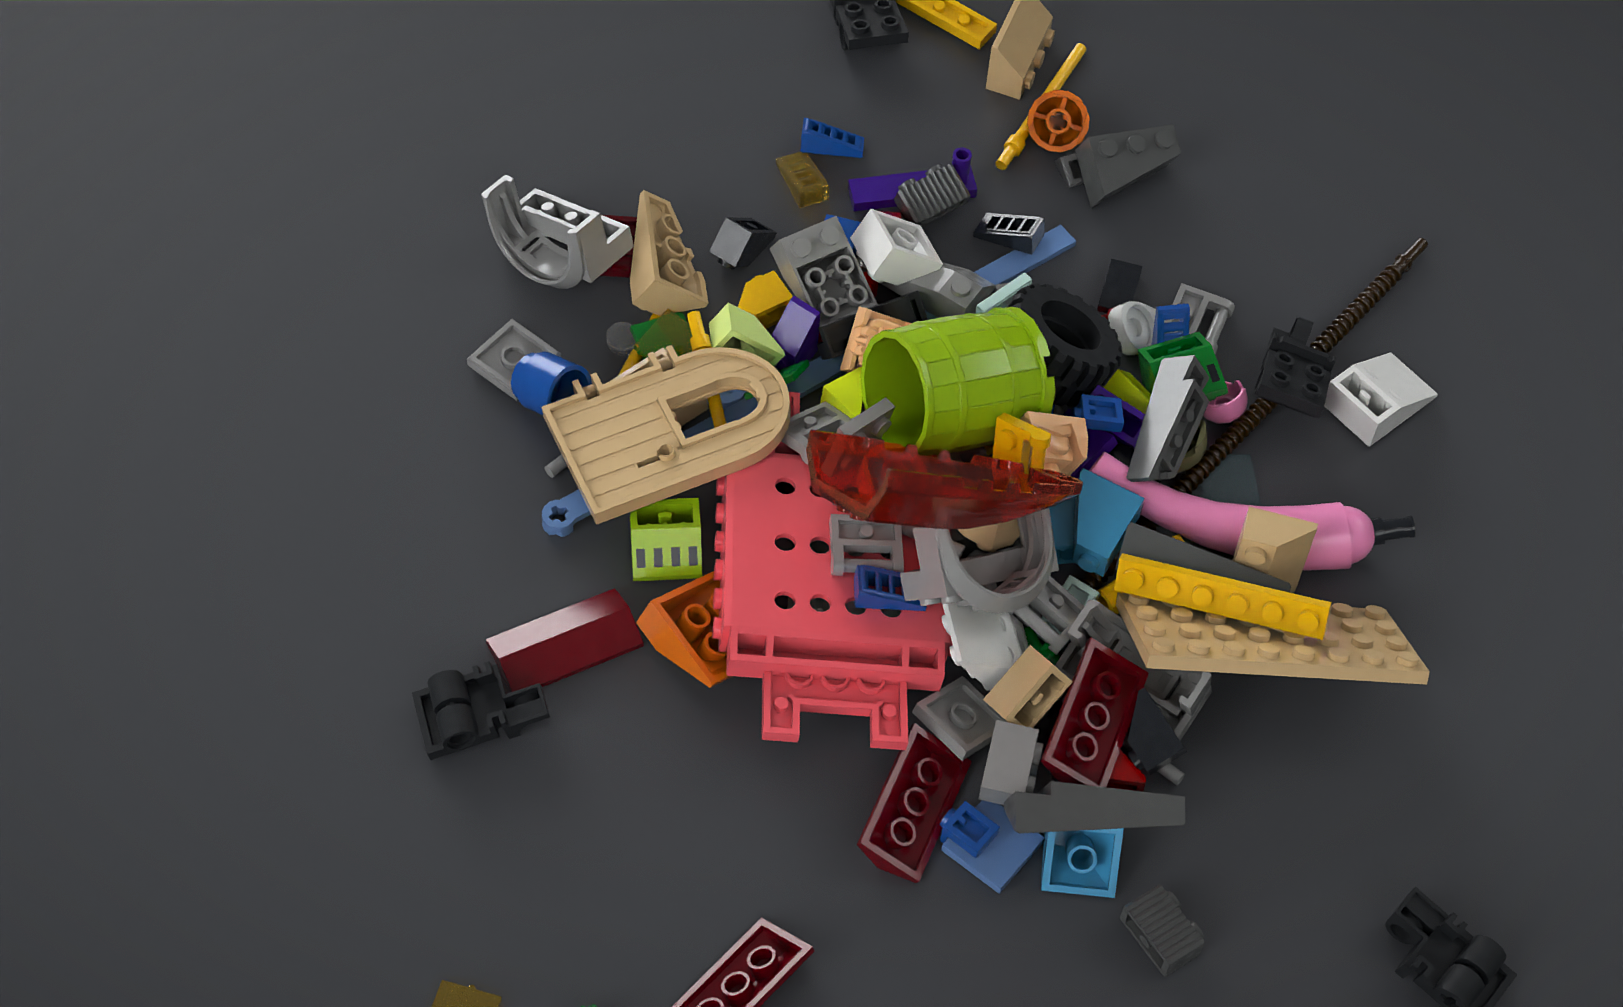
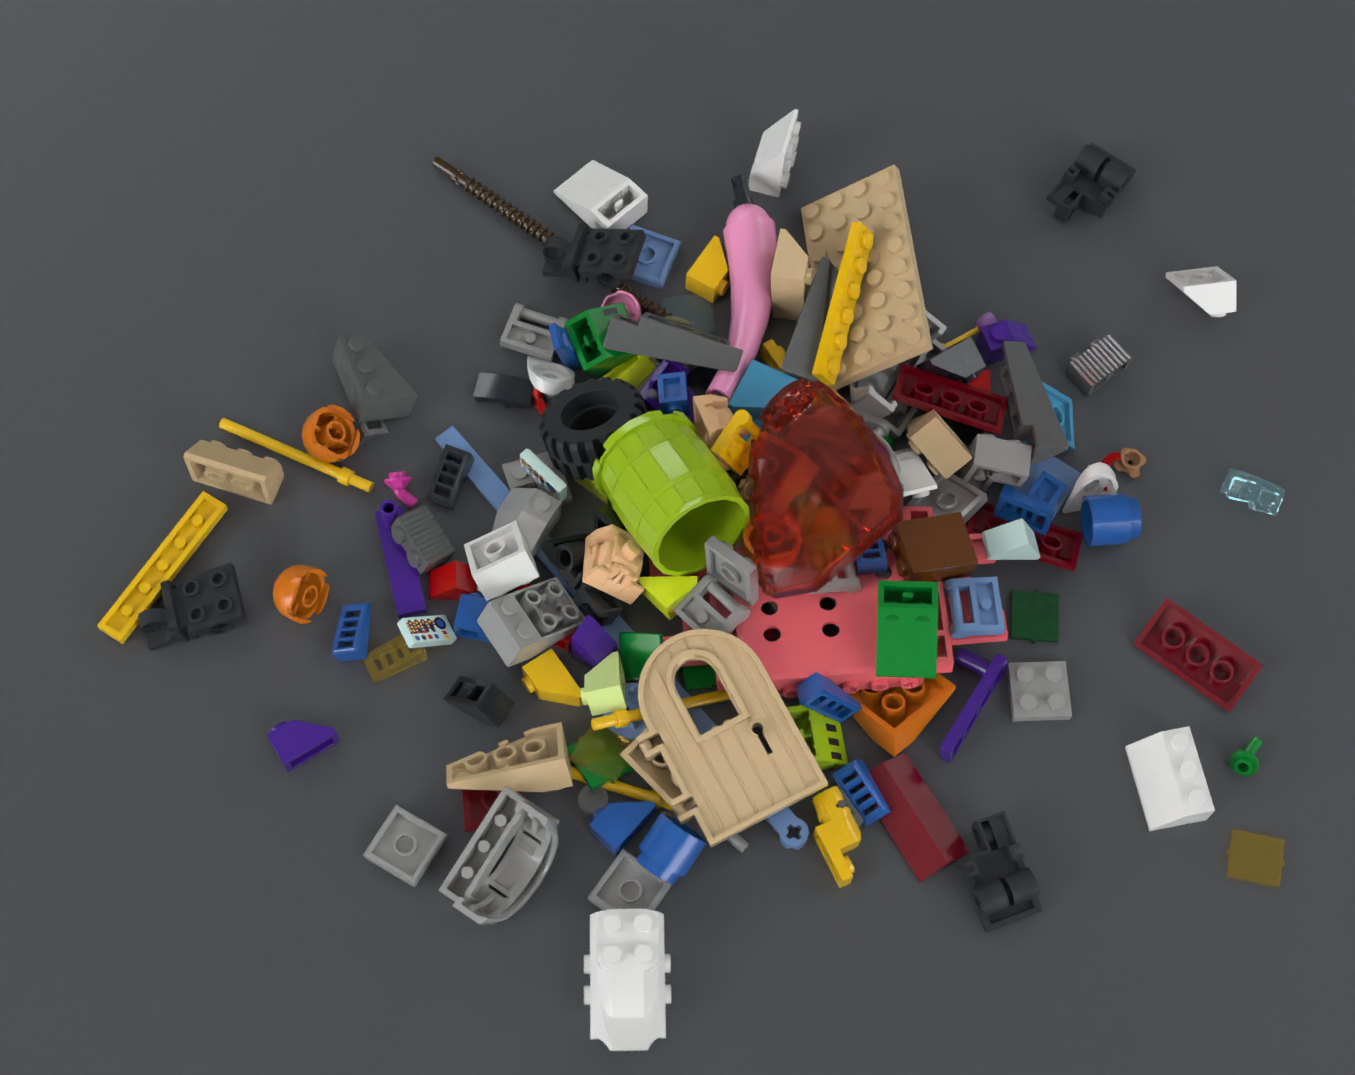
camera: 95 degrees left, 10 degrees up
(411, 343) = (627, 978): none -> white slope
(549, 554) = (838, 832): none -> yellow plate
(573, 929) = (1170, 779): none -> white slope
(587, 346) = (620, 823): none -> blue slope
(591, 173) = (405, 845): none -> light grey plate
(599, 585) = (870, 787): none -> blue slope
(693, 717) = (991, 676): none -> dark purple piece
(704, 532) = (824, 697): none -> blue slope
(707, 798) = (1039, 691): none -> light grey plate
(710, 91) = (300, 741): none -> dark purple slope
(769, 599) = (906, 629): none -> green slope
(800, 702) = (984, 607): none -> medium blue plate
(808, 809) = (1034, 616): none -> dark green piece
(822, 191) = (426, 631): none -> light aqua tile
(874, 94) = (300, 592): none -> orange cylinder
(877, 651) = (933, 548): none -> reddish brown brick
(891, 762) = (1011, 542): none -> light aqua slope
(928, 898) = (1109, 519): none -> blue piece
(948, 793) = (1019, 499): none -> blue slope
(983, 894) = (1094, 480): none -> white piece
(1003, 185) = (397, 482): none -> dark pink plate
(1022, 943) = (1130, 455): none -> medium nougat plate
(1202, 830) = (992, 336): none -> dark purple slope
(1220, 802) = (983, 320): none -> hinge
(1283, 488) = (709, 272): none -> yellow slope
(1306, 443) = (655, 258): none -> medium blue tile
(1449, 574) = (775, 156): none -> white slope

